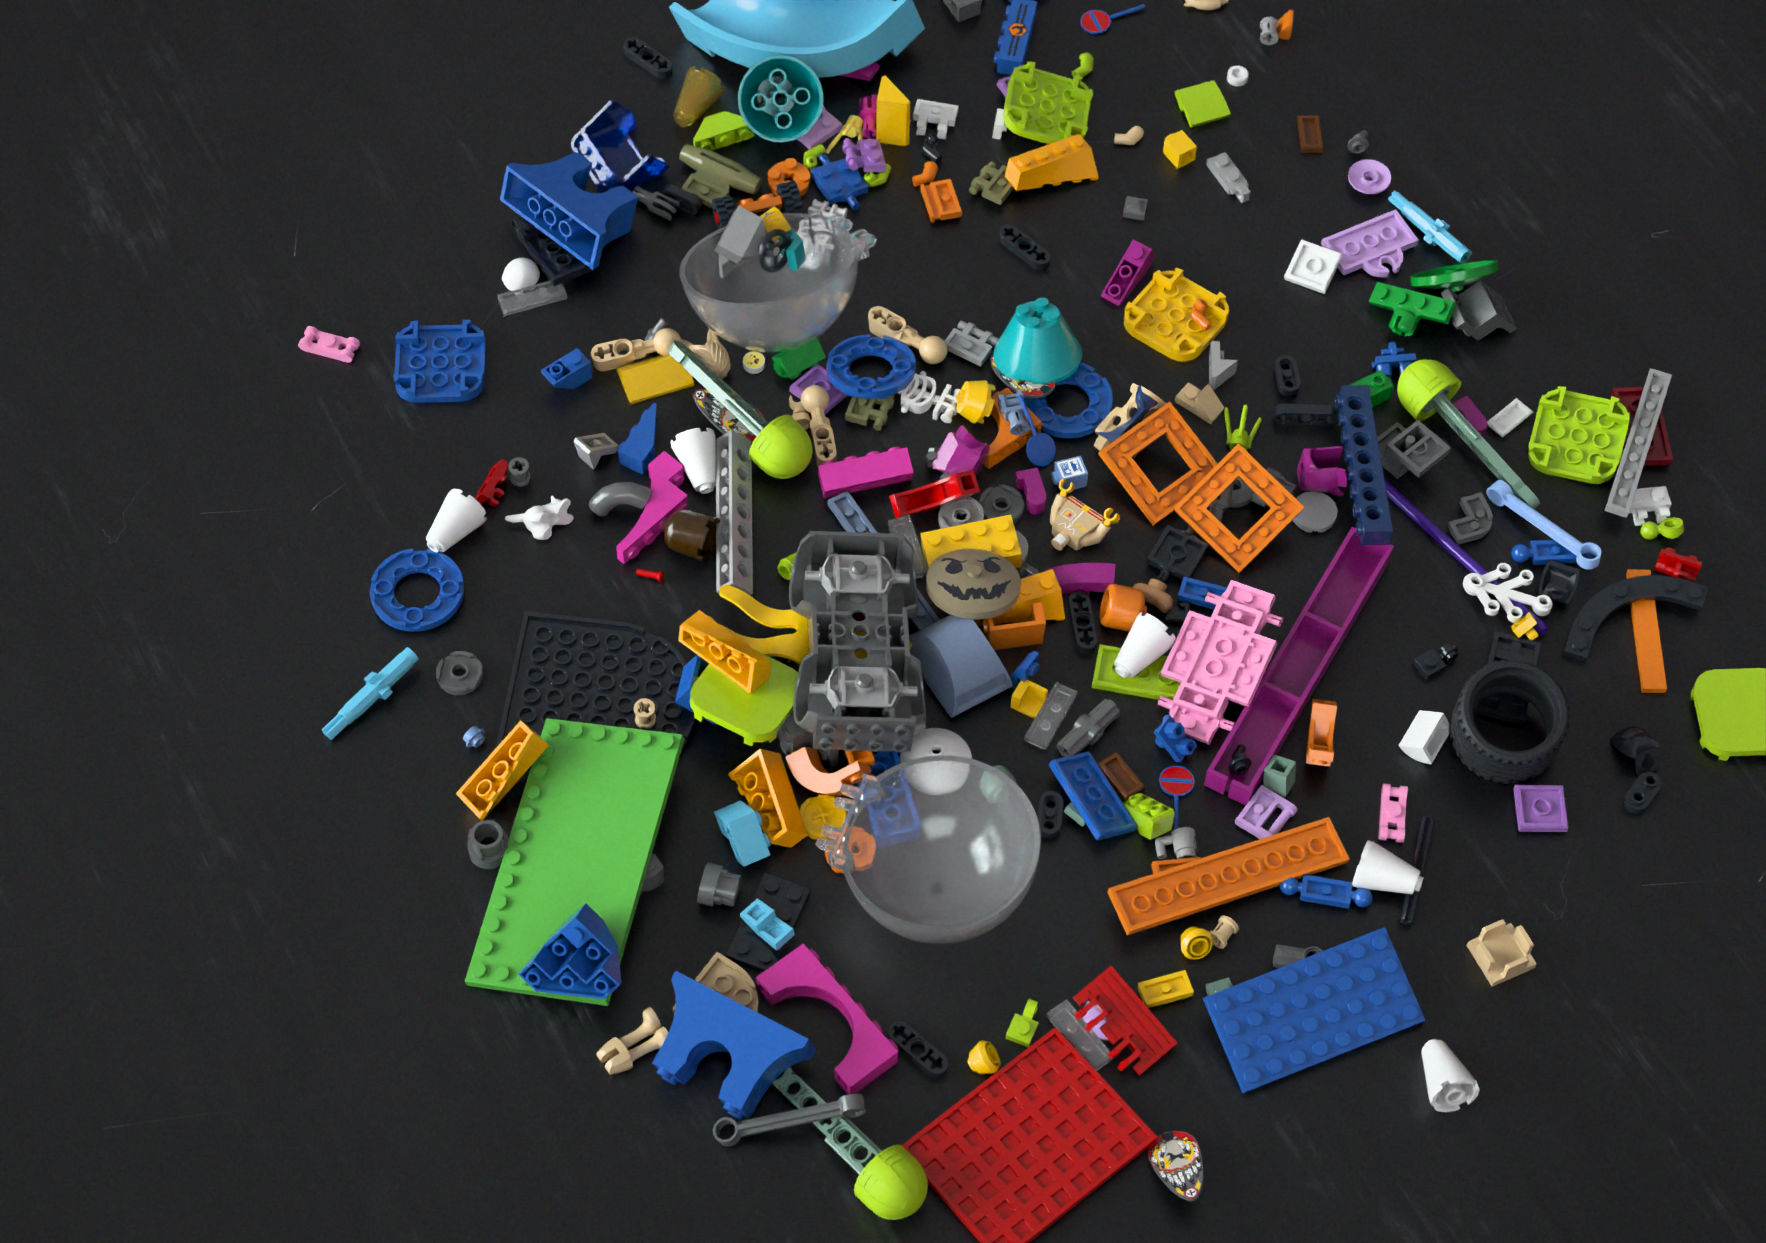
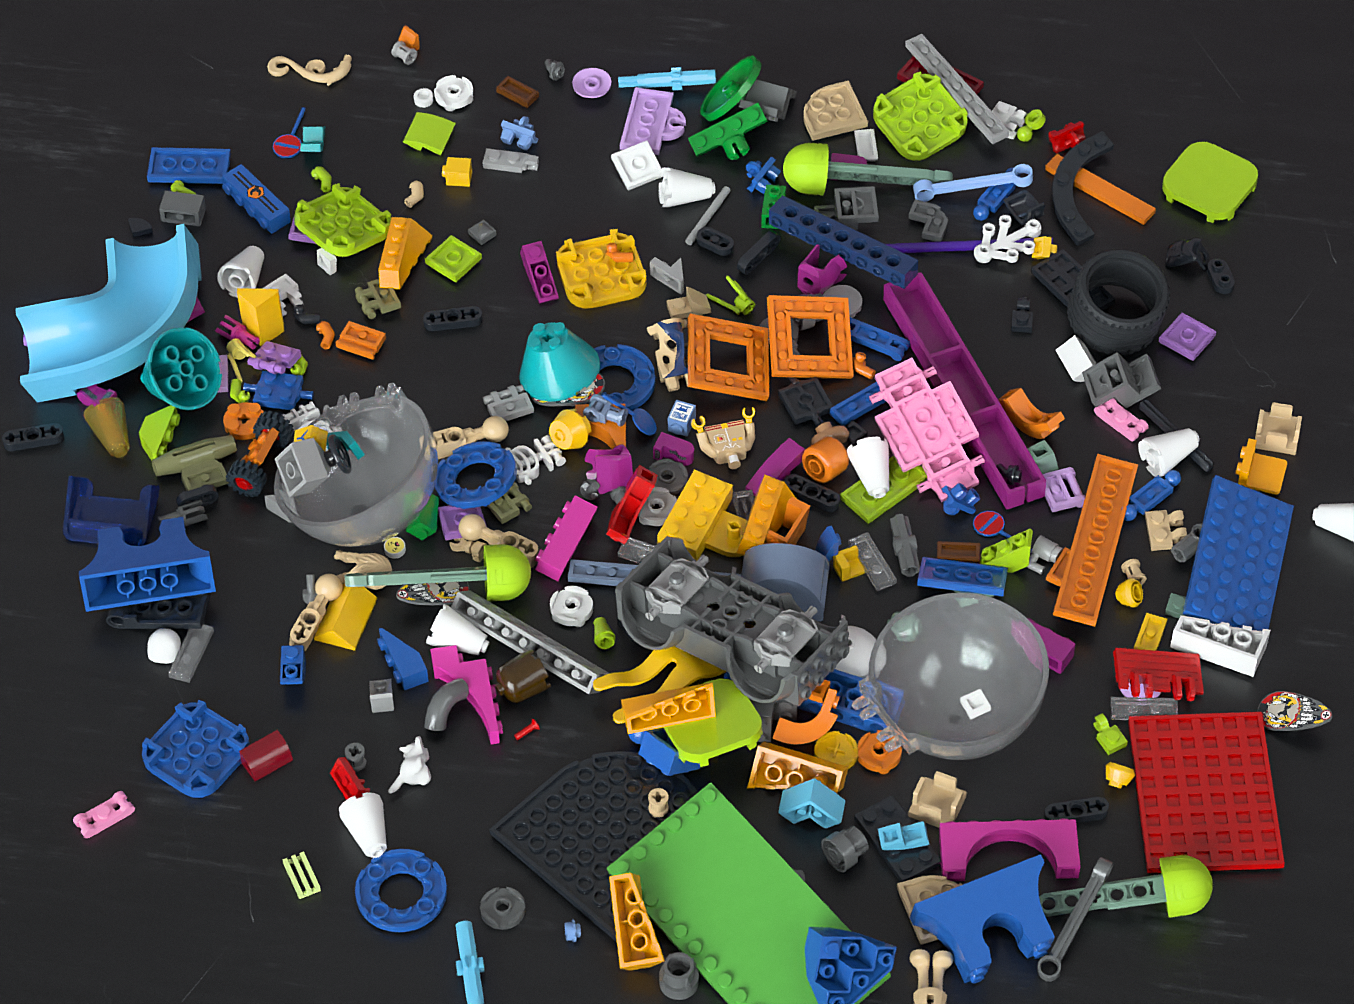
camera: 50 degrees left, 5 degrees down
(395, 502) = (295, 861): none -> yellowish green tile
(471, 411) = (265, 755): none -> dark red brick
(722, 70) = (93, 394): none -> magenta leg
(800, 511) = (575, 616): none -> white plate
(833, 928) = (937, 800): none -> tan panel
(924, 882) = (975, 703): none -> white plate
(932, 76) = (241, 270): none -> white cone
(973, 584) = (740, 525): dark tan dish -> none
(1075, 915) = (1059, 648): none -> magenta slope
(1086, 206) = (453, 258): none -> lime plate
(1118, 33) = (313, 139): none -> slope
(1207, 1064) = (1220, 643): none -> white wedge
(1256, 570) = (860, 366): none -> orange arm
(1263, 171) = (521, 130): none -> medium blue hips
(1265, 101) = (453, 101): none -> white plate
(1294, 923) = (1159, 531): none -> tan plate
(1296, 561) = (878, 339): none -> blue plate
(1316, 352) = (708, 214): none -> light grey bar
(1319, 314) = (683, 187): none -> white cone
(1429, 783) = (1121, 380): none -> dark grey bracket
(1439, 964) = (1260, 471): none -> light orange bracket
(1520, 369) = (833, 111): none -> tan plate

